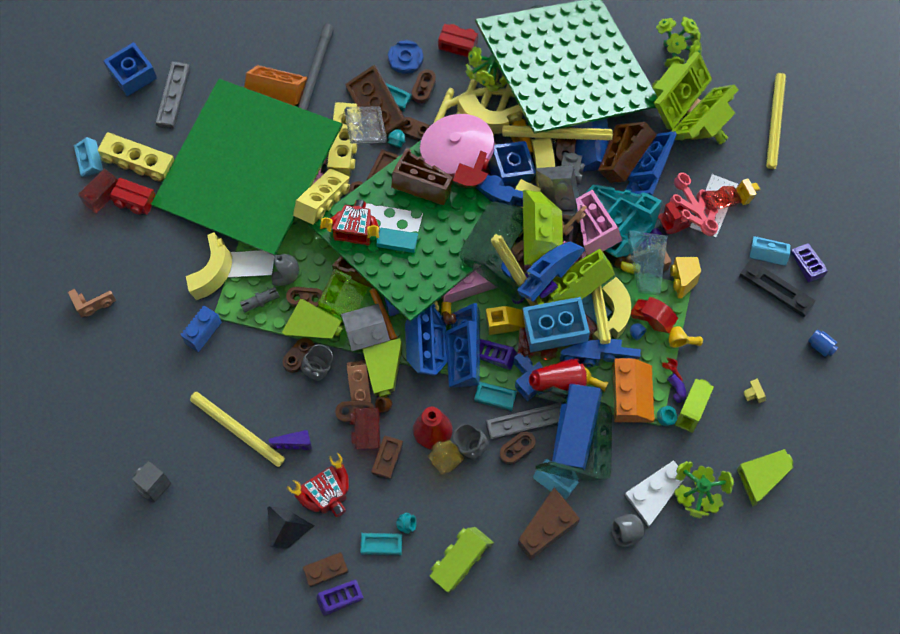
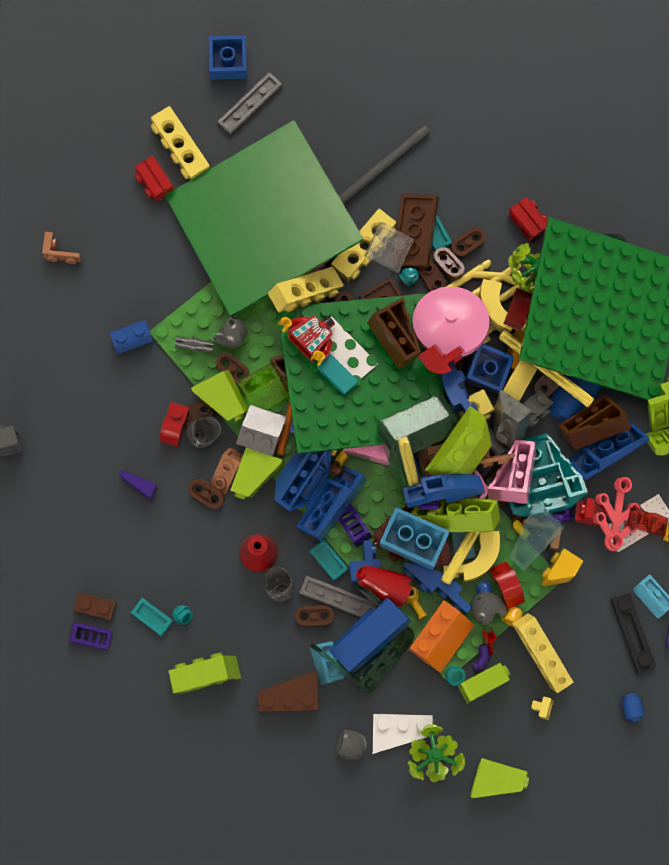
camera: 30 degrees right, 10 degrees up
(88, 157) = (140, 115): medium azure slope -> none
(98, 191) = (129, 155): clear red brick -> none
(214, 273) = (175, 295): light yellow arch -> none
(237, 429) = (103, 442): light yellow axle -> none
(251, 263) = (201, 302): white sticker -> none
(276, 84) = (341, 155): orange slope -> none
(285, 527) = (86, 550): black slope -> none
(288, 374) = (173, 425): none -> red brick
(325, 490) = (137, 543): torso -> none
(366, 427) = (204, 515): clear red brick -> none
(384, 404) = (233, 504): reddish brown hinge -> none
(387, 457) = (205, 550): reddish brown plate -> none
(405, 57) = (473, 203): blue tile -> none
(423, 109) = (451, 263): none -> plate
(445, 456) = (250, 583): clear yellow brick -> none
(502, 103) = (518, 309): none -> dark red tile
(504, 319) = (379, 502): yellow slope -> none
(652, 342) = (486, 605): none -> dark grey helmet
(723, 347) = (542, 653): none -> light yellow brick

